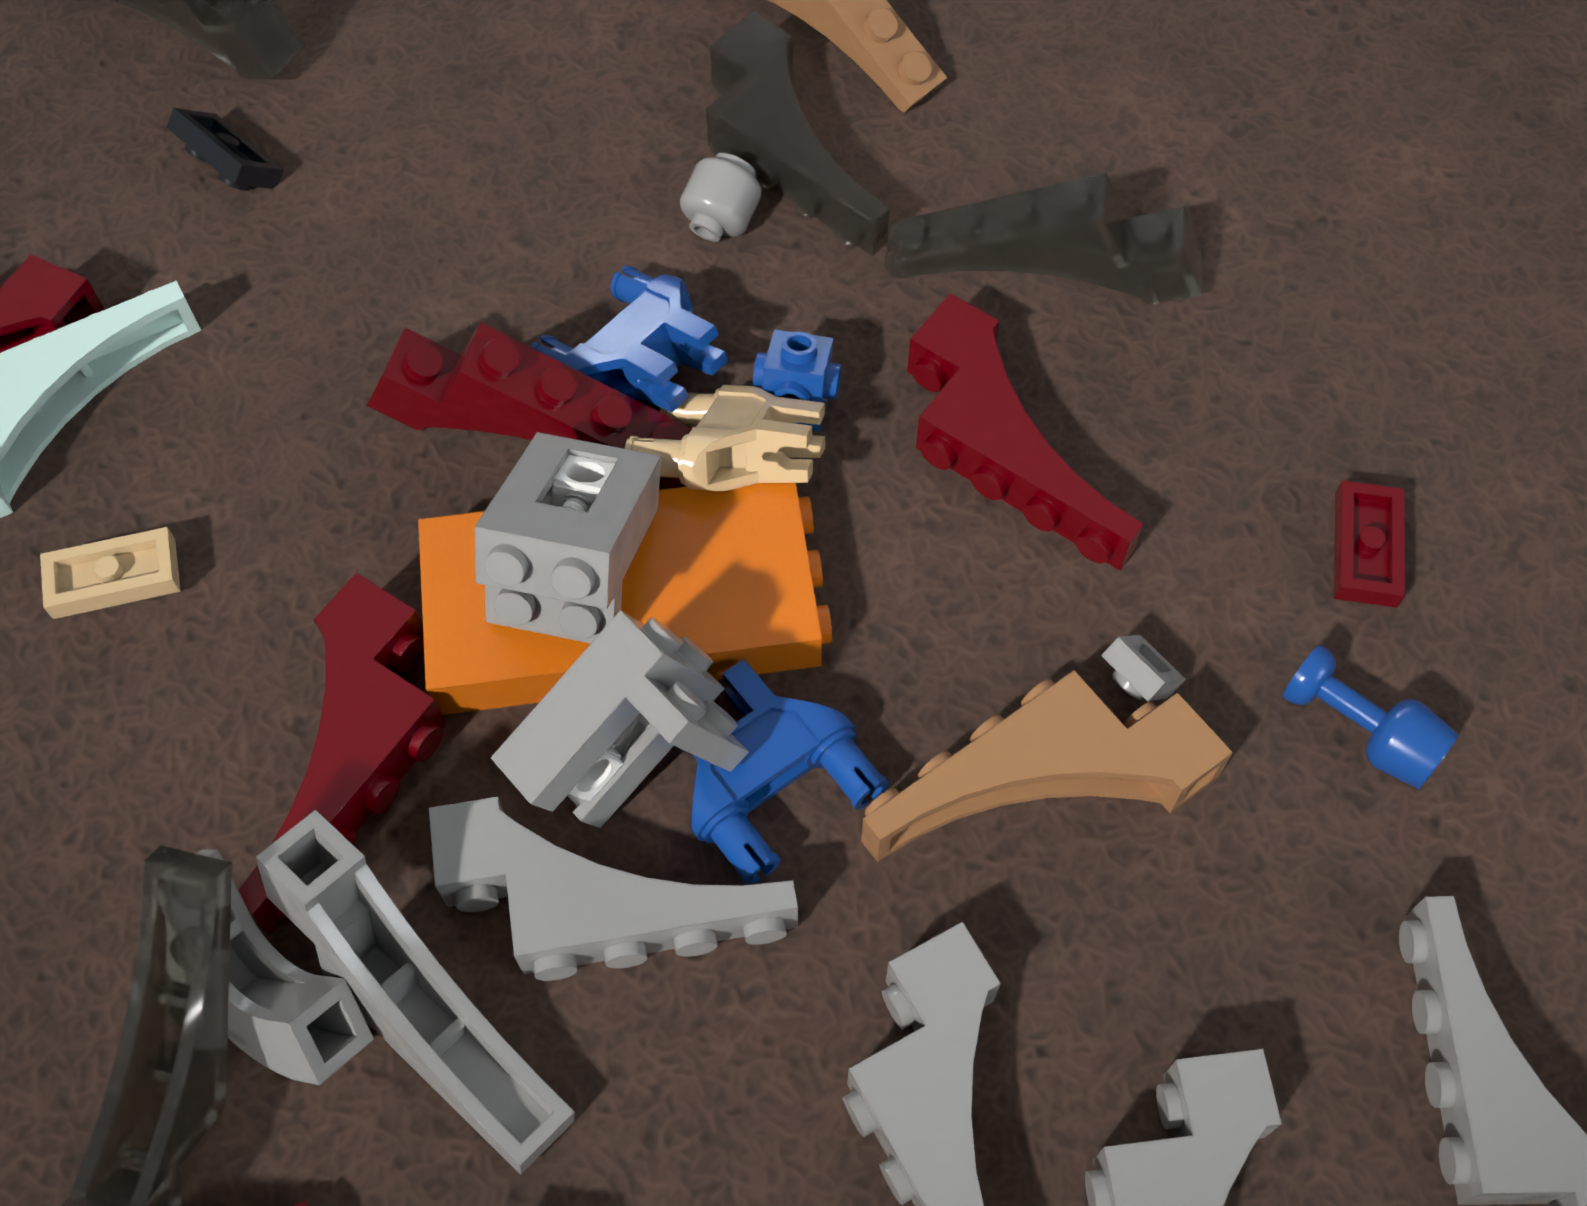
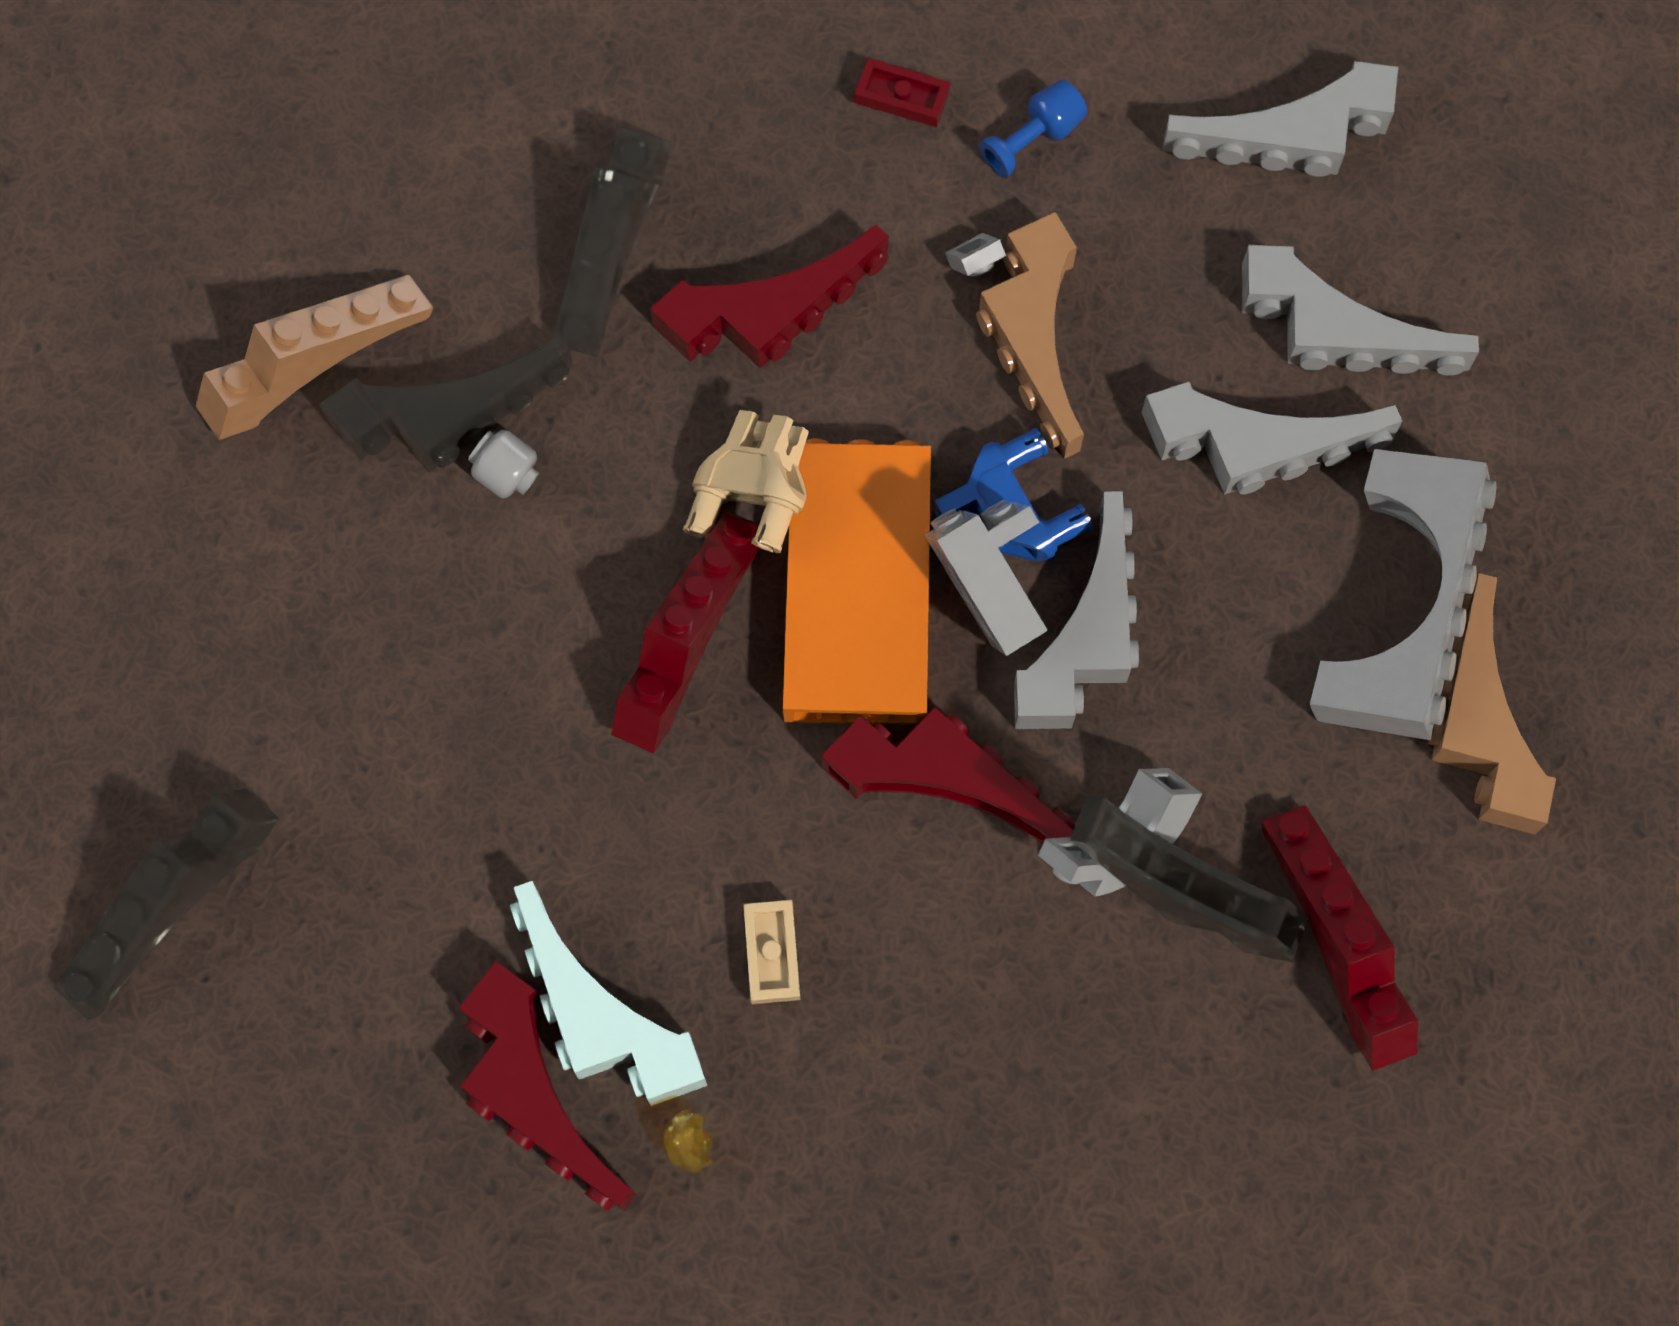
camera: 80 degrees left, 10 degrees up
(225, 149) = (354, 859): black plate -> none
(407, 993) = (1151, 737): light grey arch -> none
(565, 535) = (838, 584): light grey brick -> none
(645, 341) = (646, 537): blue connector -> none
(799, 367) = (697, 428): blue brick -> none

